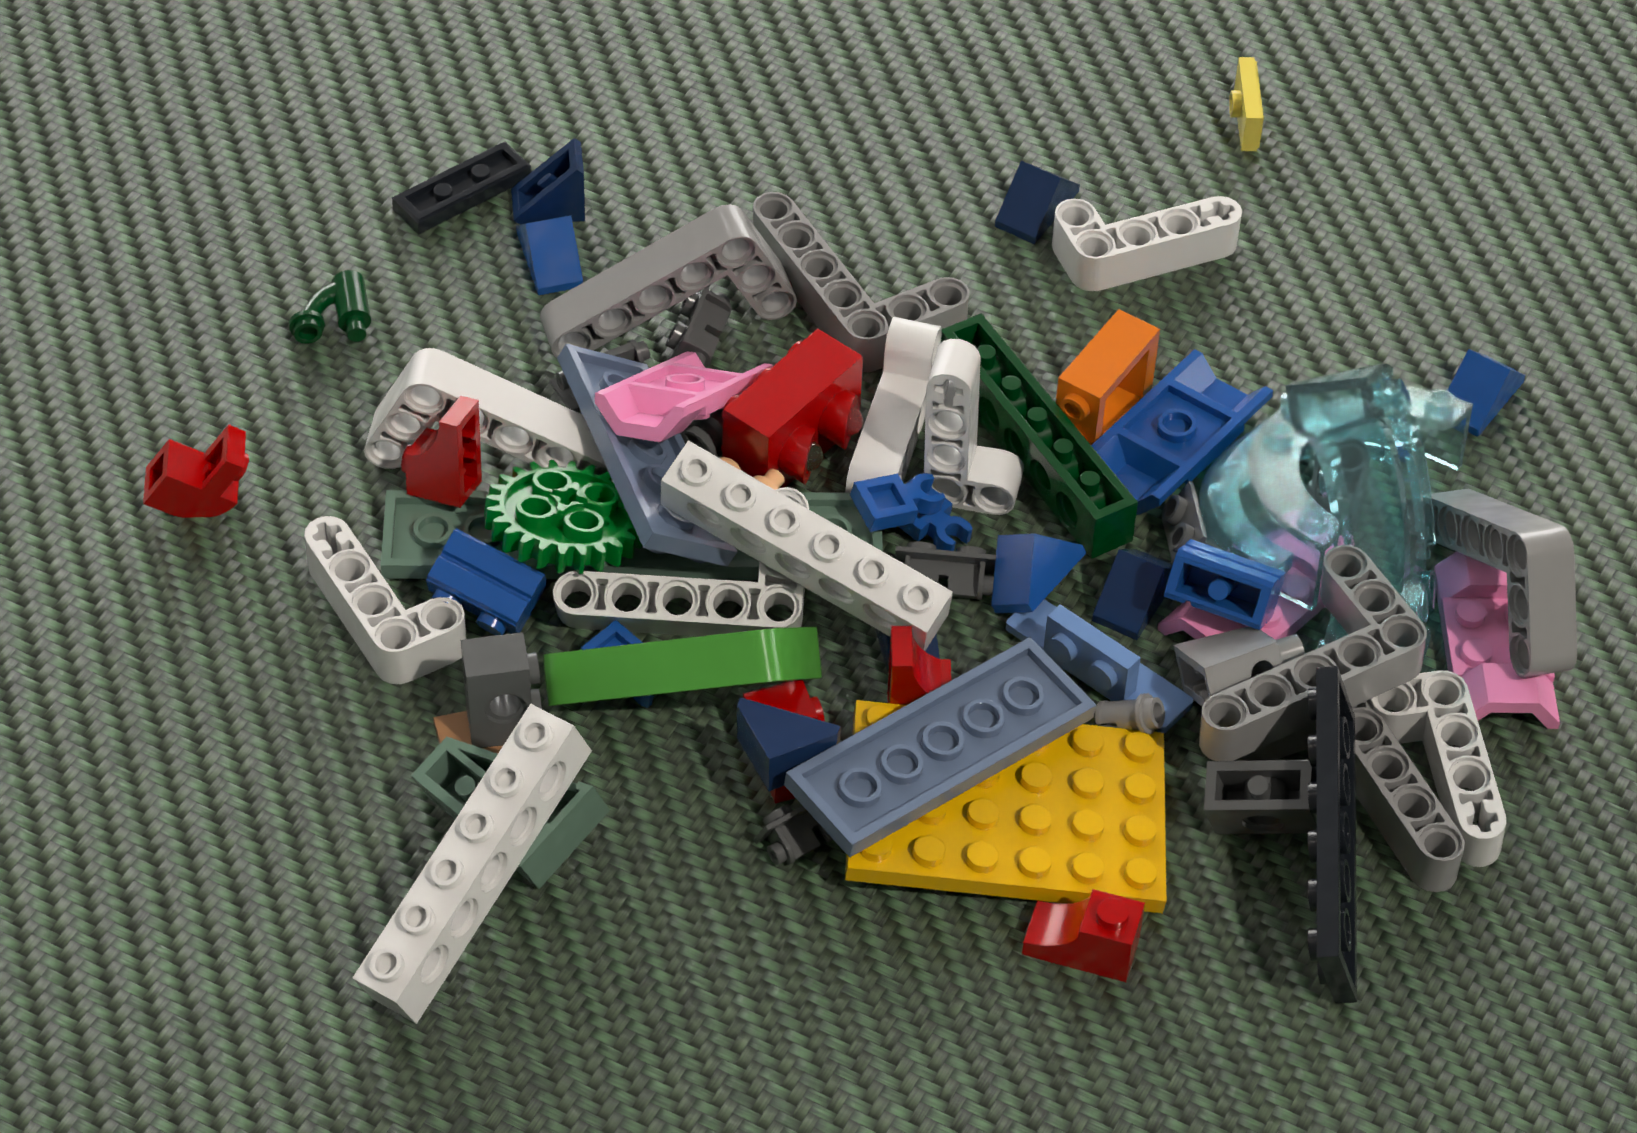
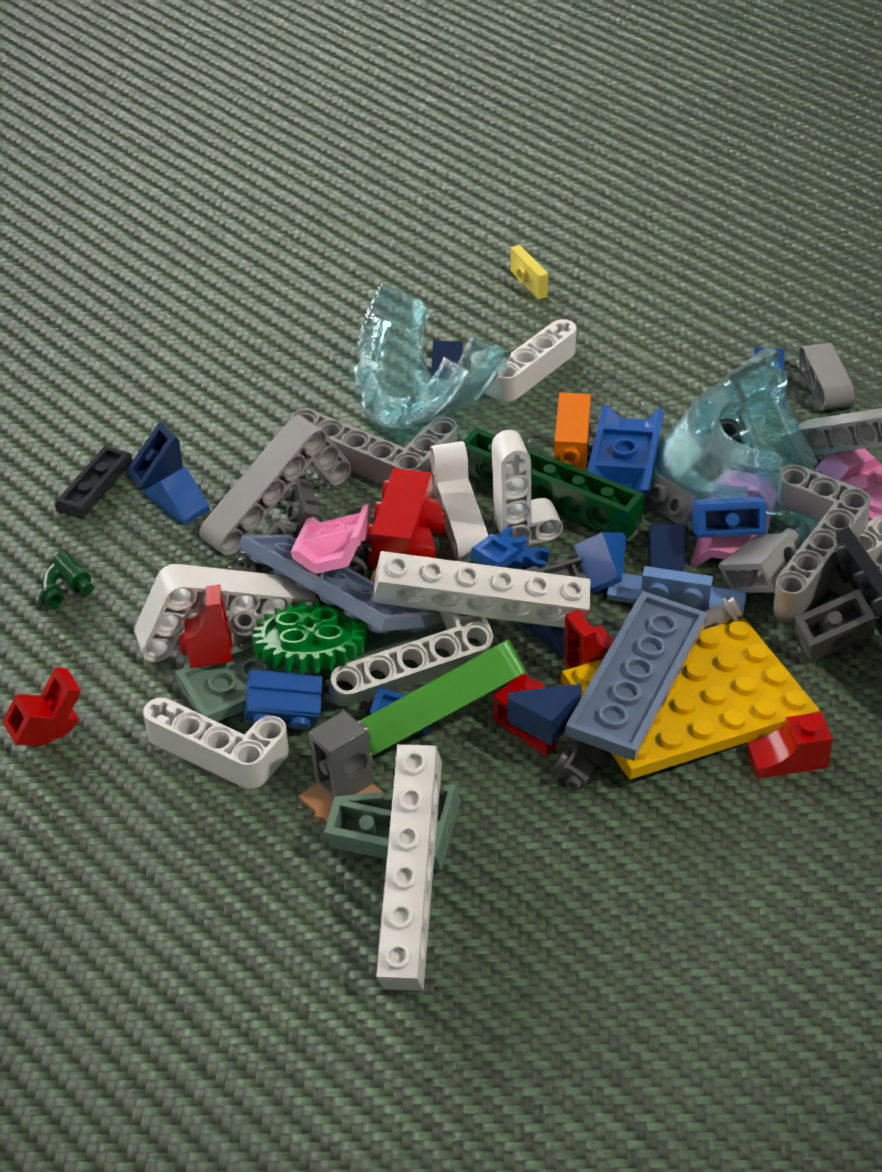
camera: 25 degrees left, 5 degrees down
(499, 461) = (241, 627): none -> light grey pin
(944, 191) = (393, 371): none -> clear light blue windscreen
(1556, 434) = (826, 376): none -> light grey beam

